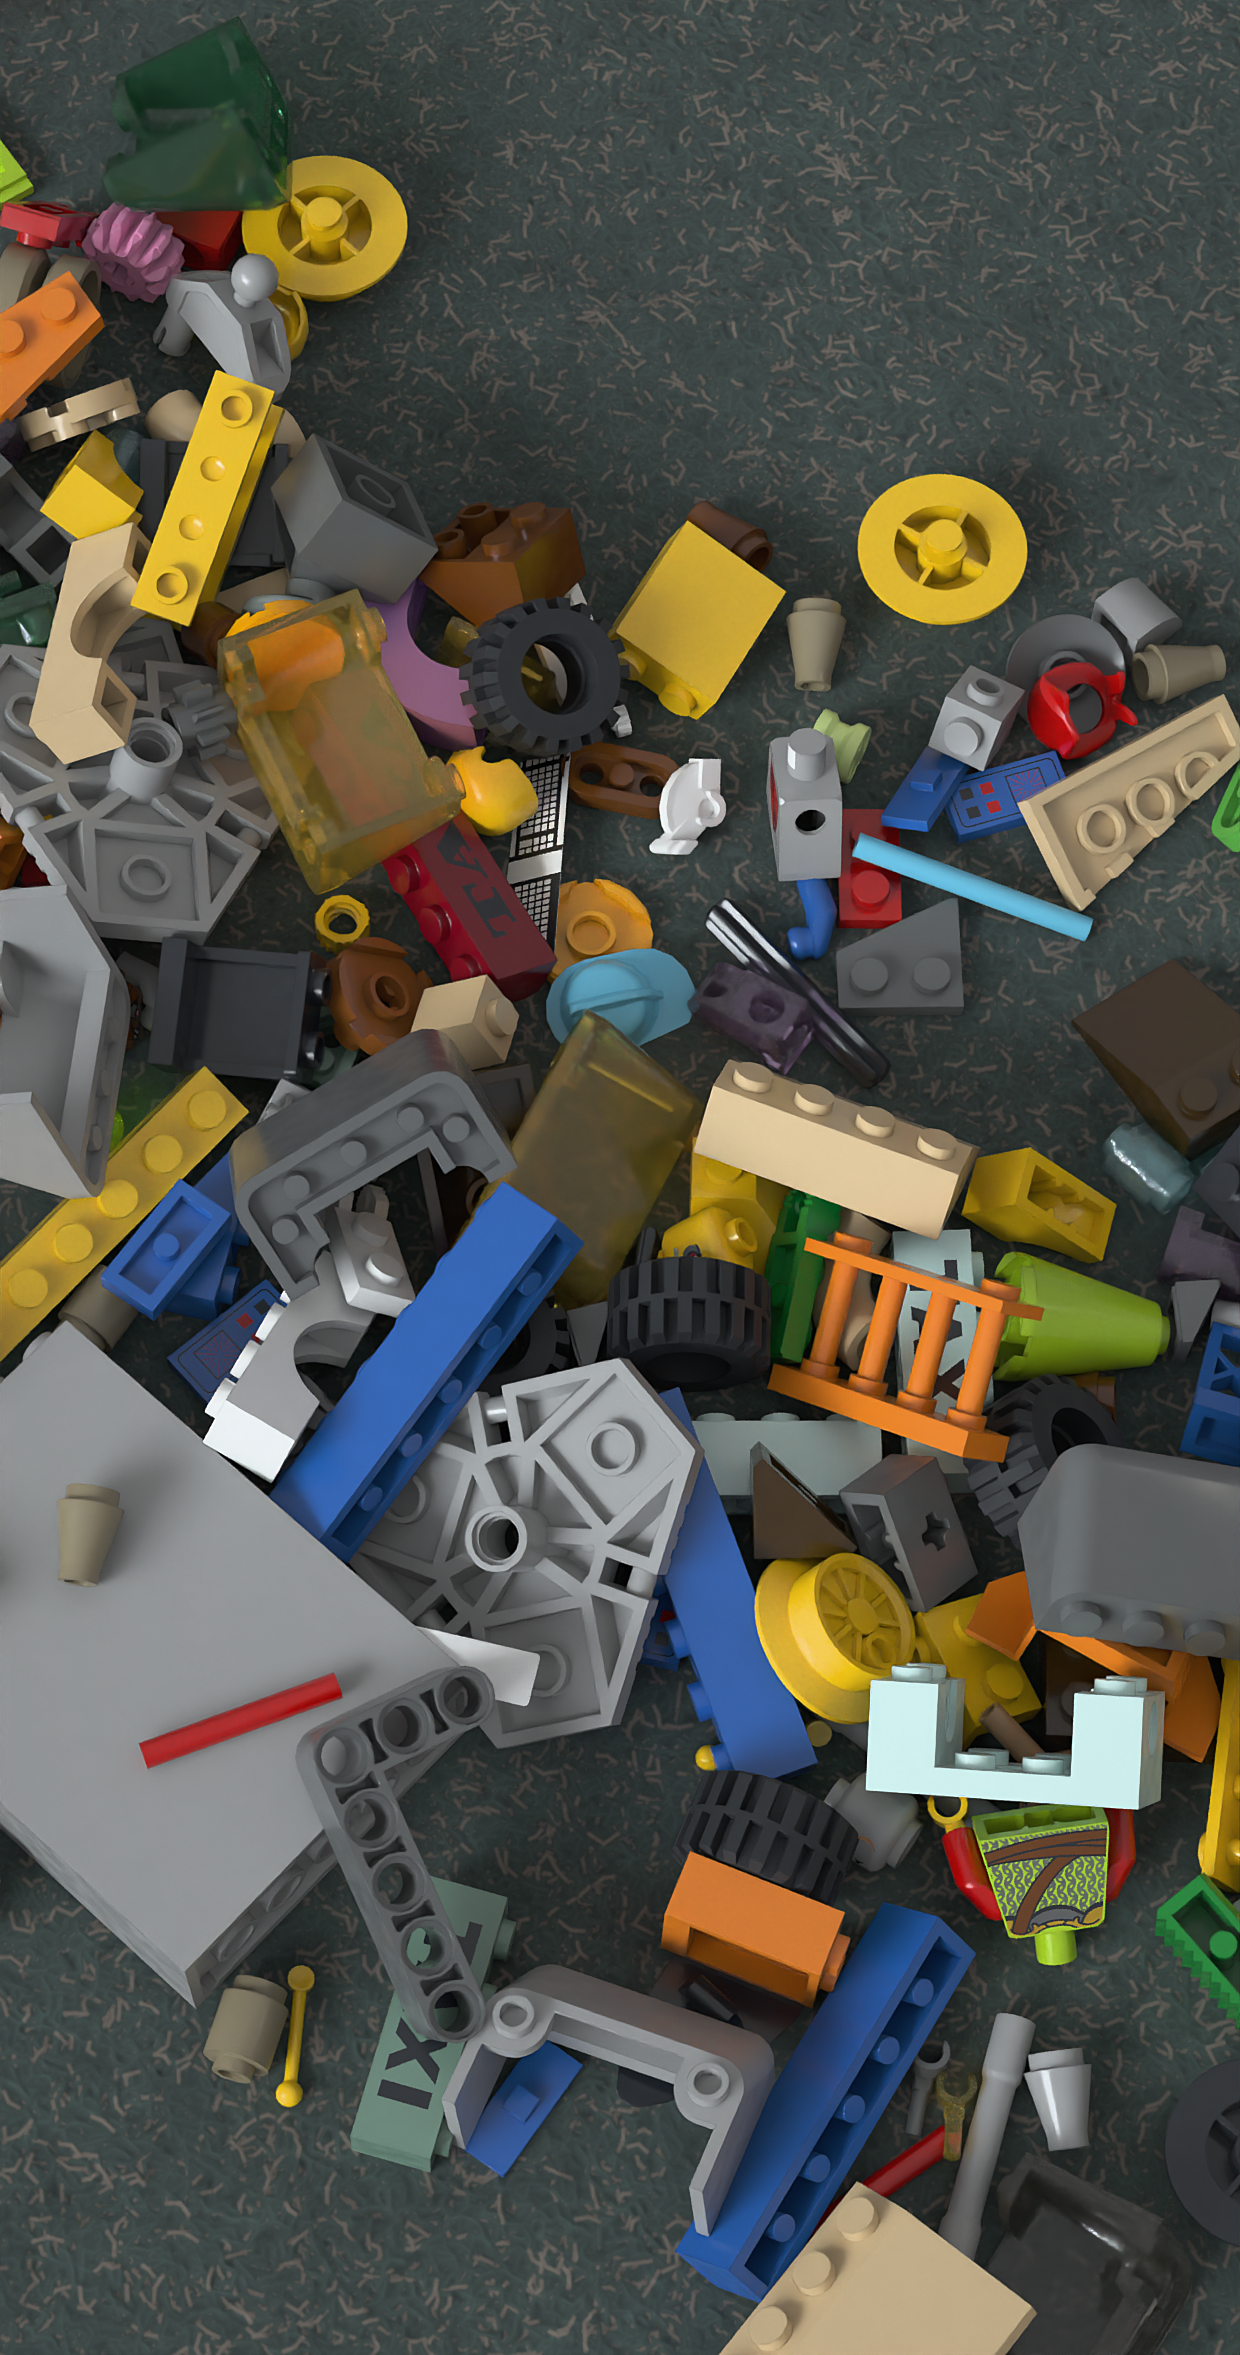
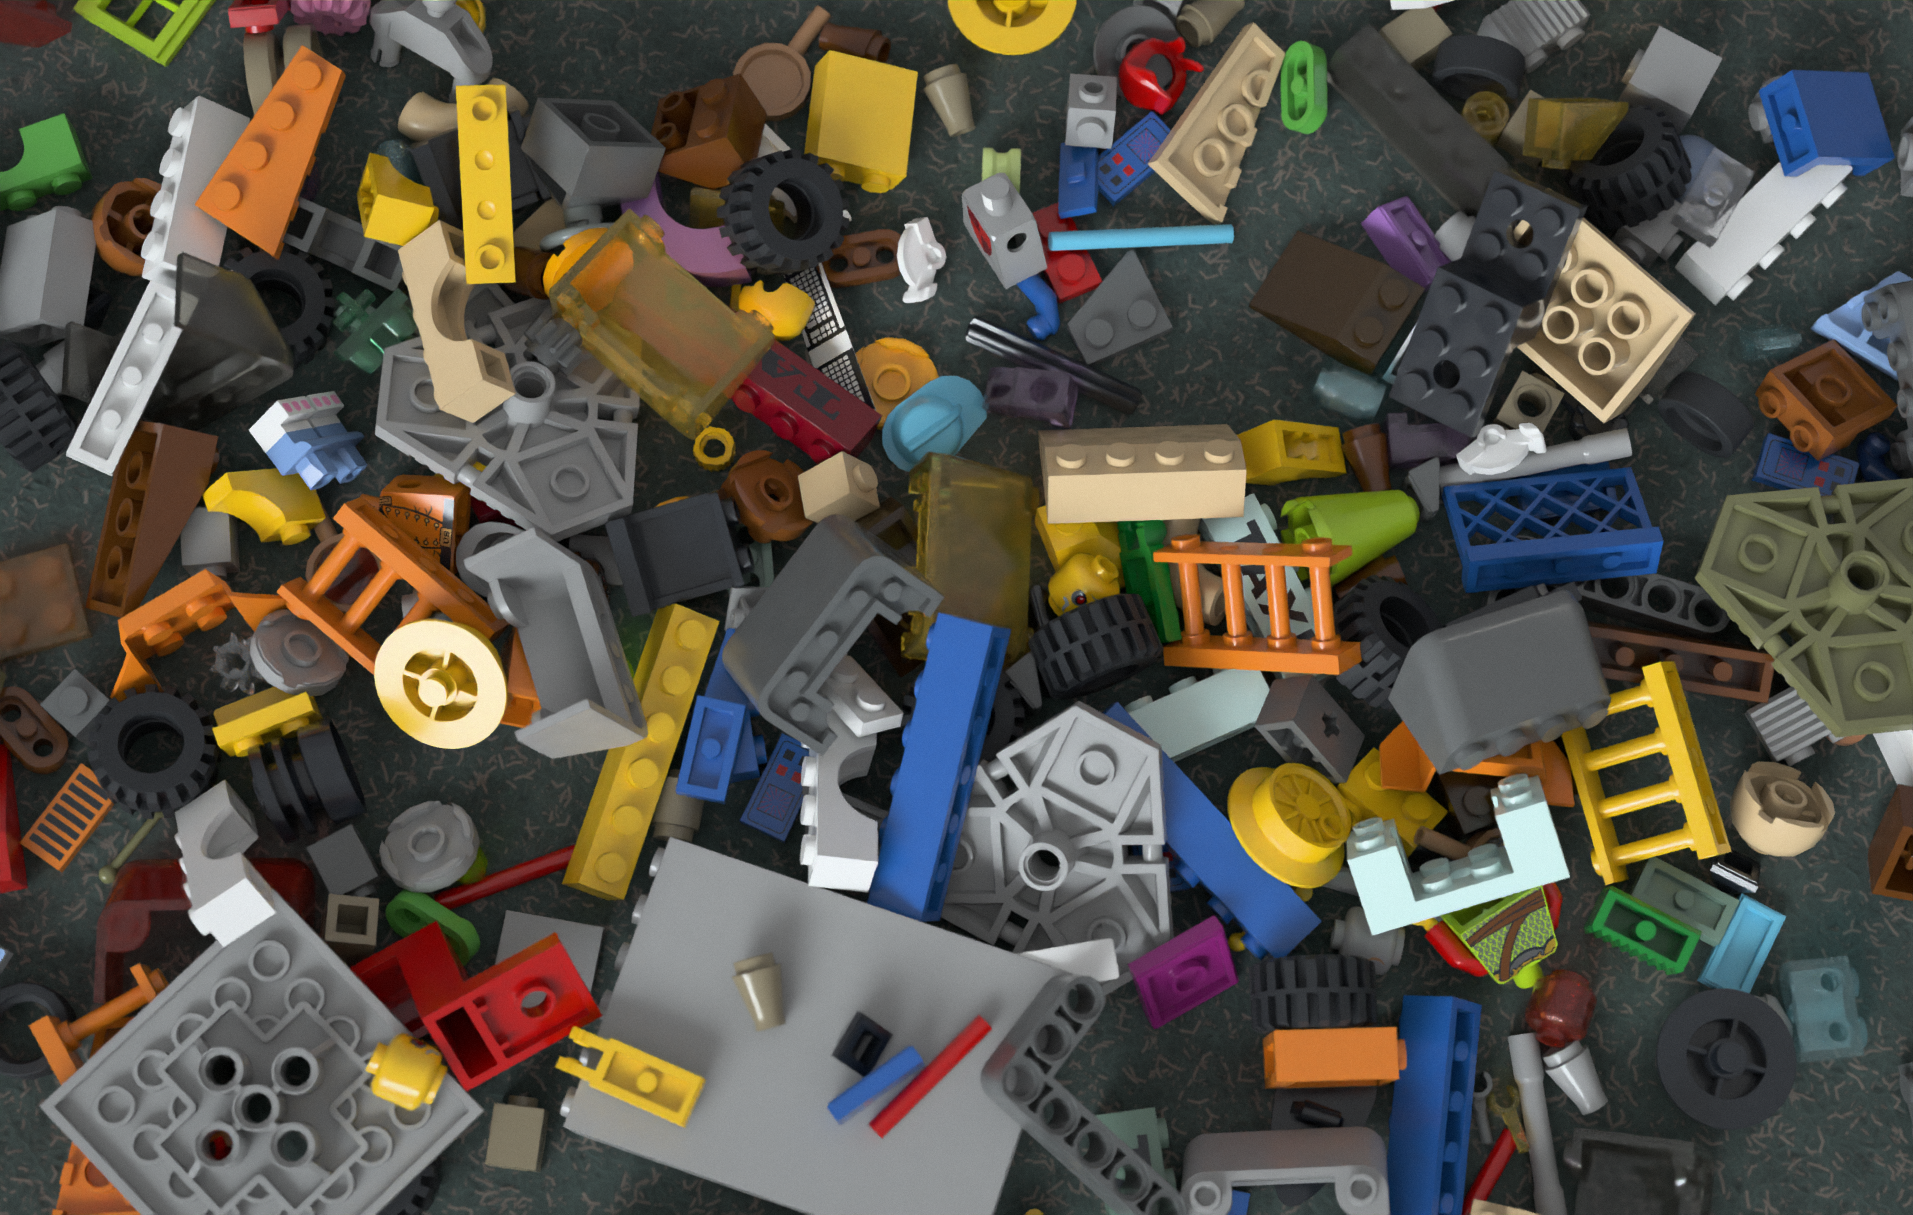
camera: 25 degrees left, 10 degrees up
(79, 414) = (344, 147): tan plate -> none
(167, 1698) = (875, 1085): none -> blue tile
(175, 1645) = (861, 1044): none -> black slope
(619, 1754) = (1184, 972): none -> magenta tile
(624, 538) = (779, 71): none -> medium nougat piece
(789, 1516) = (1226, 755): dark brown slope -> none
(1077, 2002) = (1560, 1008): none -> clear red head
(1137, 1248) = (1368, 456): none -> reddish brown cone

